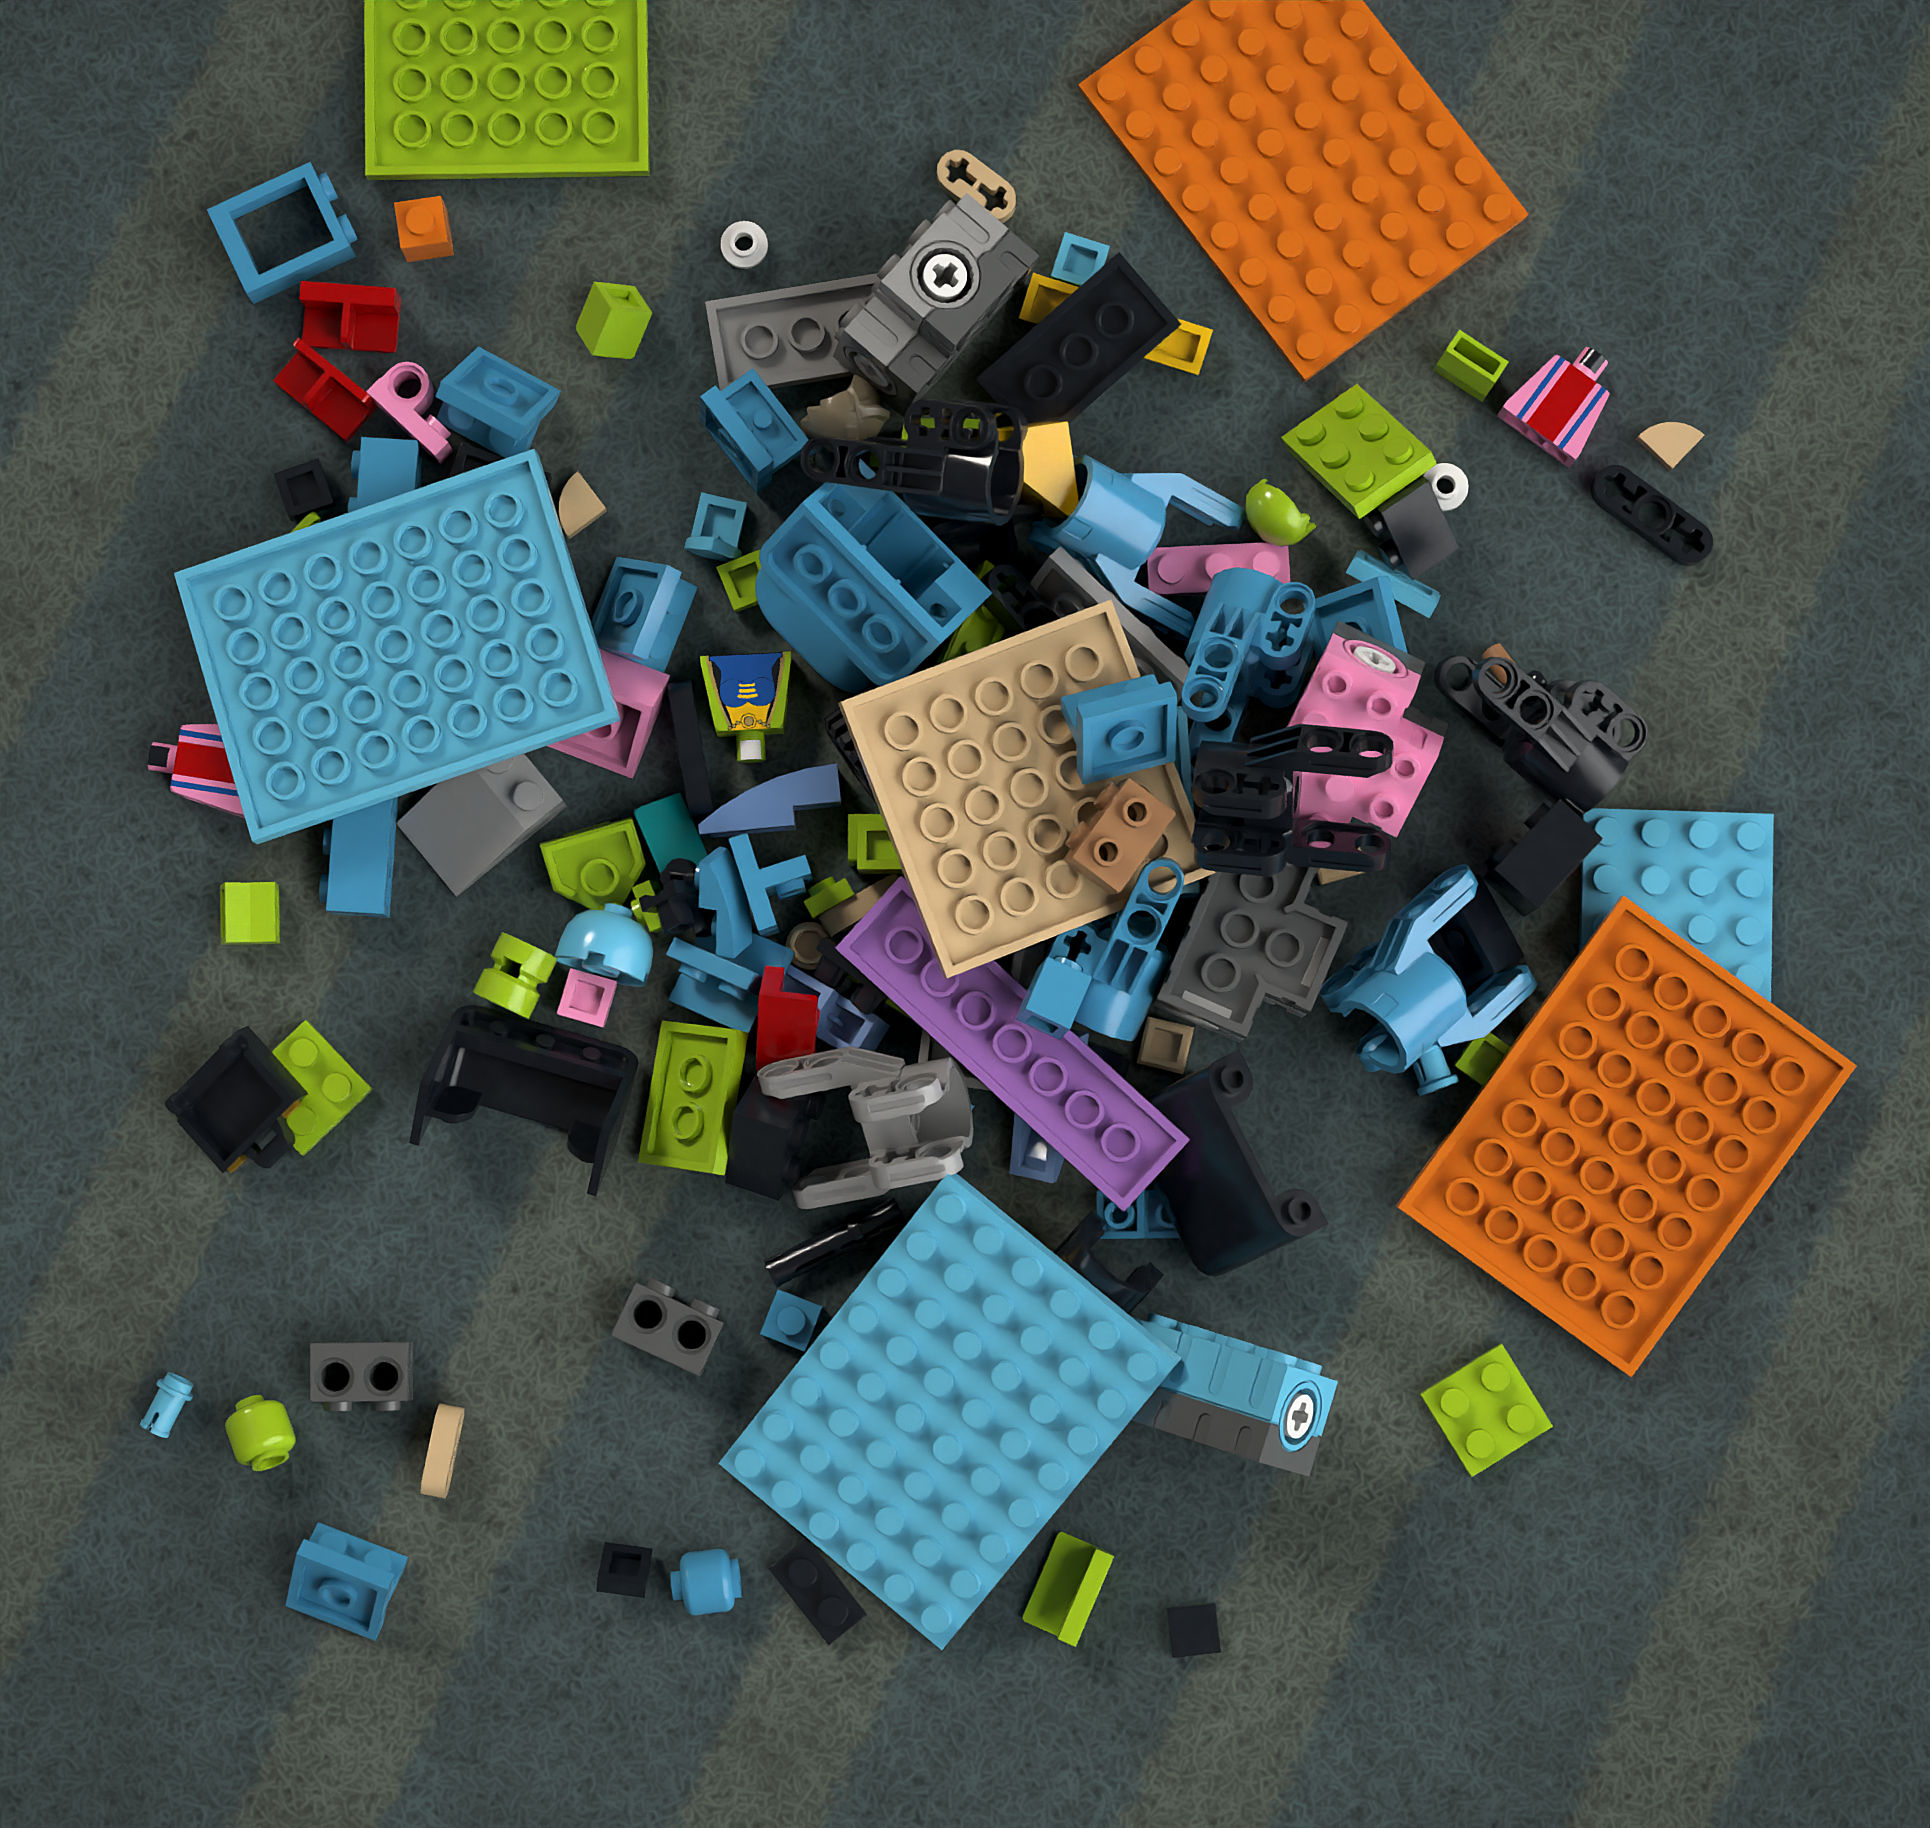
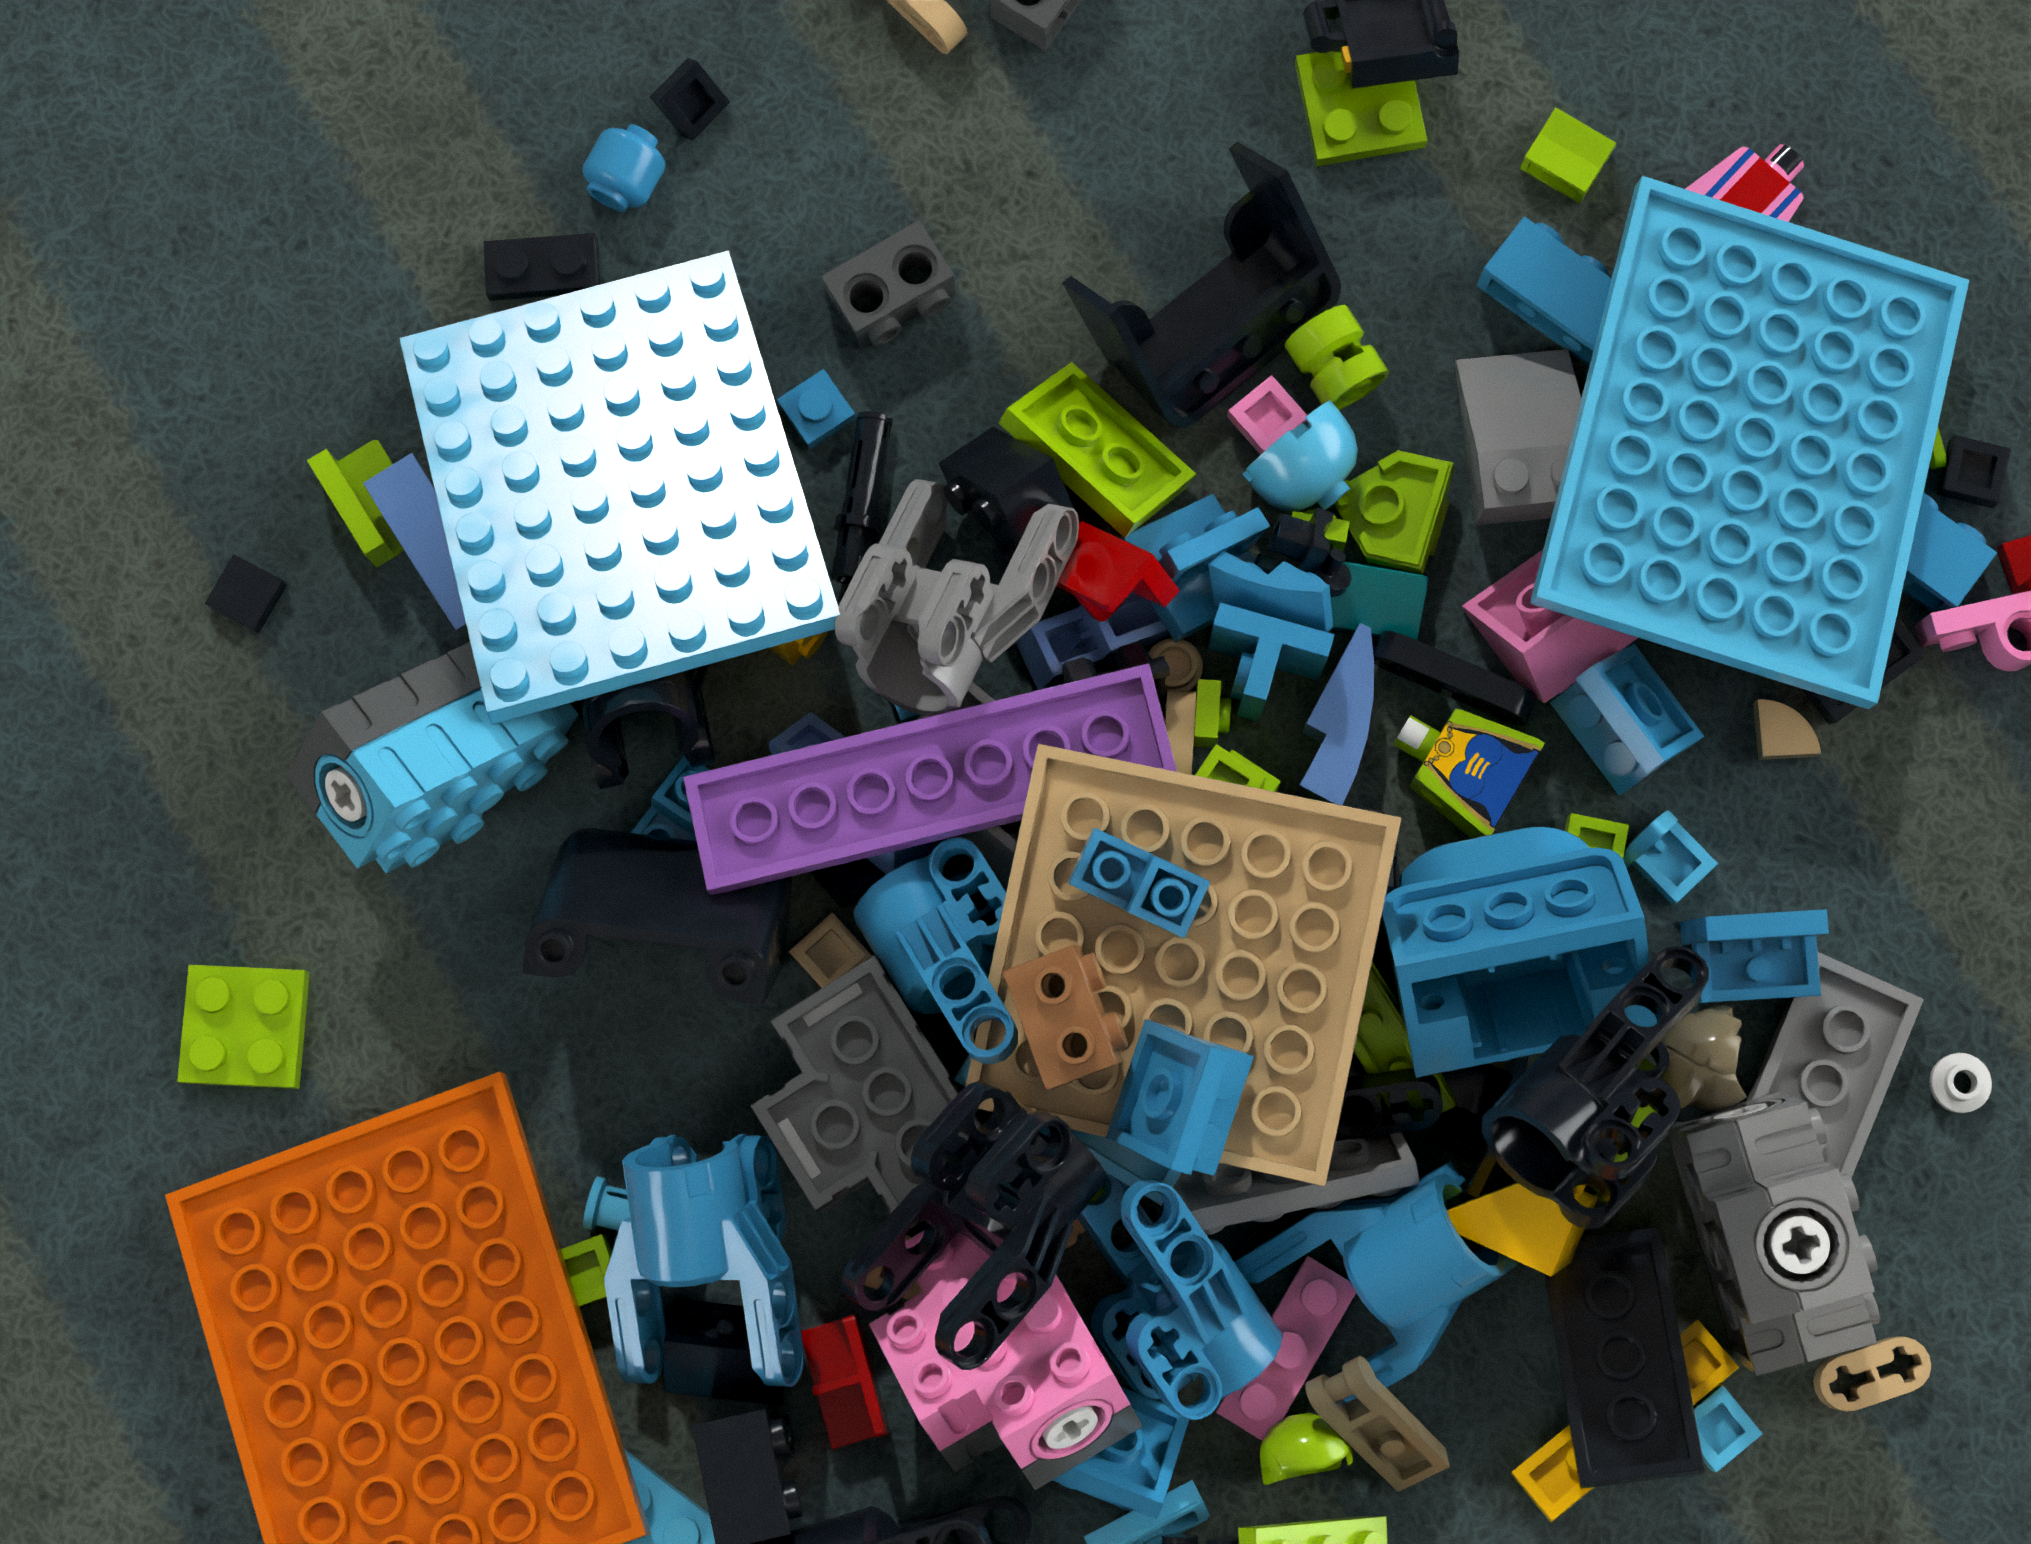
camera: 135 degrees right, 5 degrees down
(494, 403) = (1950, 714): dark azure bracket -> none
(613, 320) = (1961, 892): lime panel -> none
(996, 847) = (1138, 882): none -> dark azure slope
(1054, 997) = (945, 845): dark azure brick -> none
(1065, 1535) = (413, 514): none -> medium blue slope
(1231, 476) = (1377, 1425): none -> dark tan plate
(1437, 840) = (845, 1381): none -> red panel

